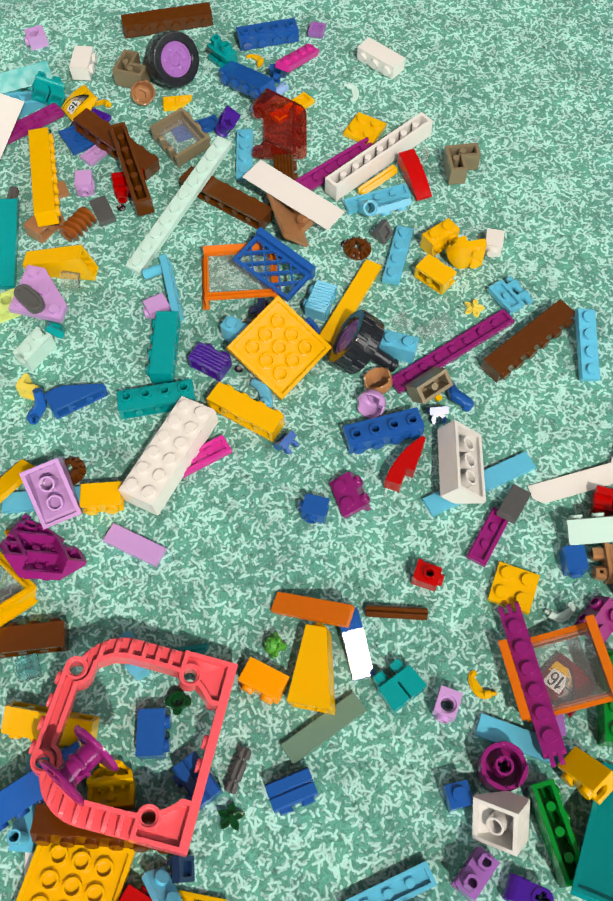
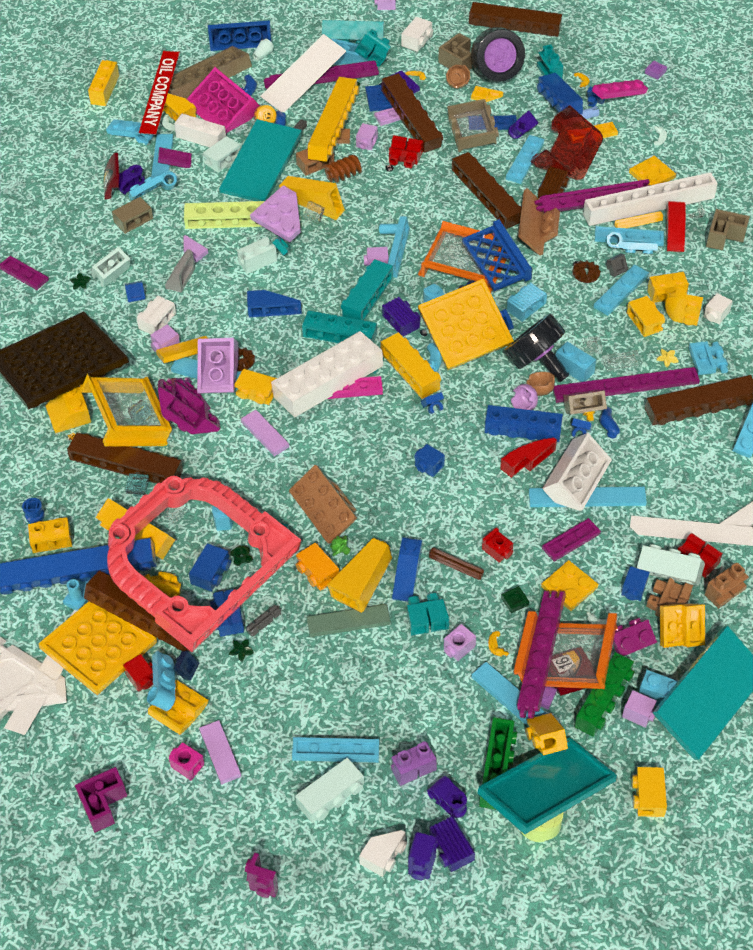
camera: 25 degrees right, 10 degrees down
(25, 387) = (236, 284): light yellow bracket -> none
(29, 298) = (271, 212): dark grey tile -> none
(38, 407) = (237, 302): blue arm -> none
(78, 101) = (398, 64): yellow slope -> none
(79, 764) = (144, 538): magenta piece -> none
(102, 211) = (371, 165): dark grey tile -> none
(131, 169) = (410, 136): reddish brown brick -> none
(179, 205) = (441, 180): light aqua plate -> none
(235, 603) = (324, 503): none -> medium nougat bracket
(267, 34) = (604, 59): blue brick -> none
(291, 791) = (298, 650): blue brick -> none
(293, 194) = (548, 205): white sticker -> none
(313, 609) = (385, 529): orange tile -> none
(350, 494) = (467, 461): magenta bracket -> none
(351, 299) = (560, 308): yellow tile -> none
(380, 58) = (703, 114): white brick -> none
(457, 795) = (430, 707): blue brick -> none
(473, 628) = (515, 599): none -> dark green plate
(501, 820) = (455, 733): white slope -> none
(513, 504) = (608, 522): dark grey tile -> none
(514, 764) = (478, 702): magenta brick -> none

